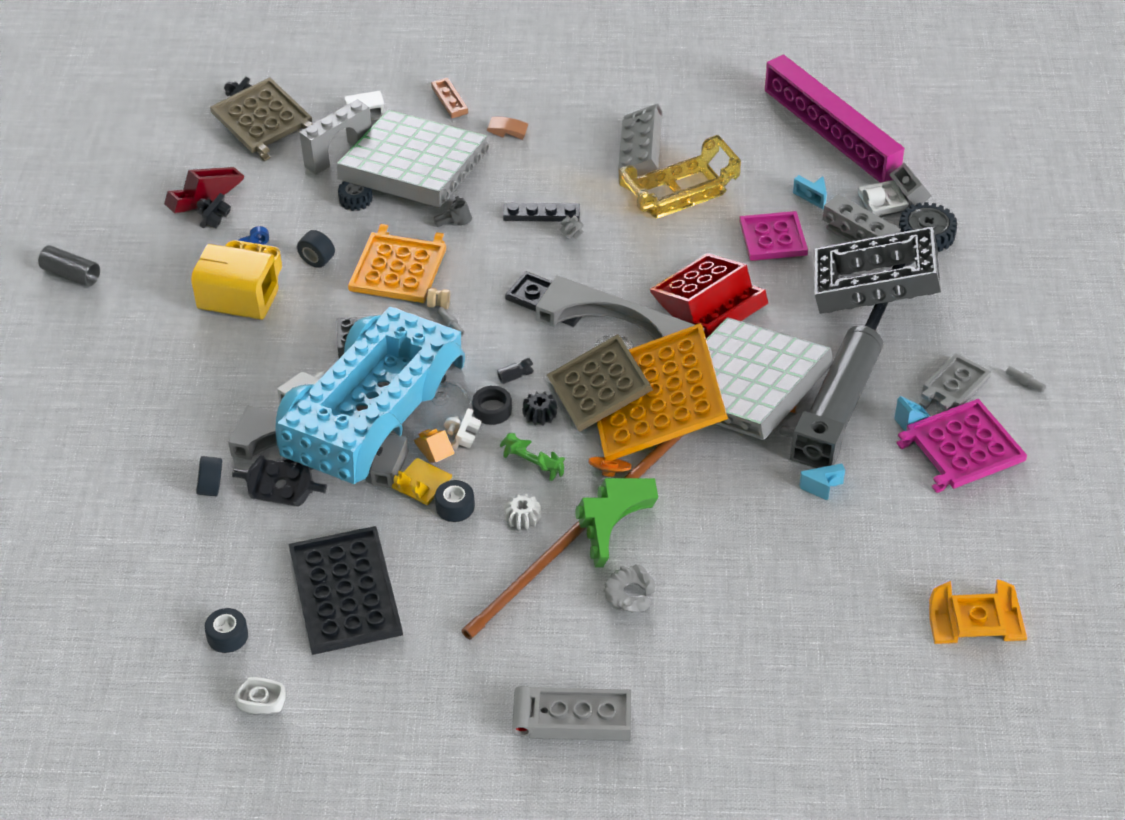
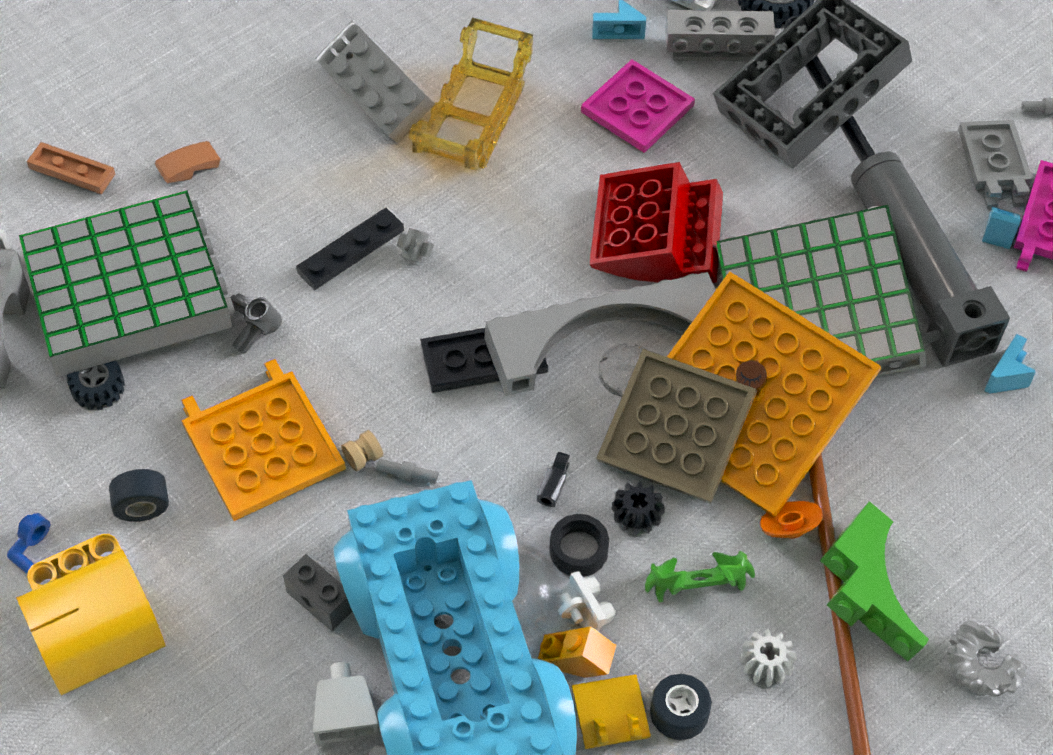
camera: 45 degrees left, 10 degrees up
(658, 380) = (752, 374): none -> reddish brown tile

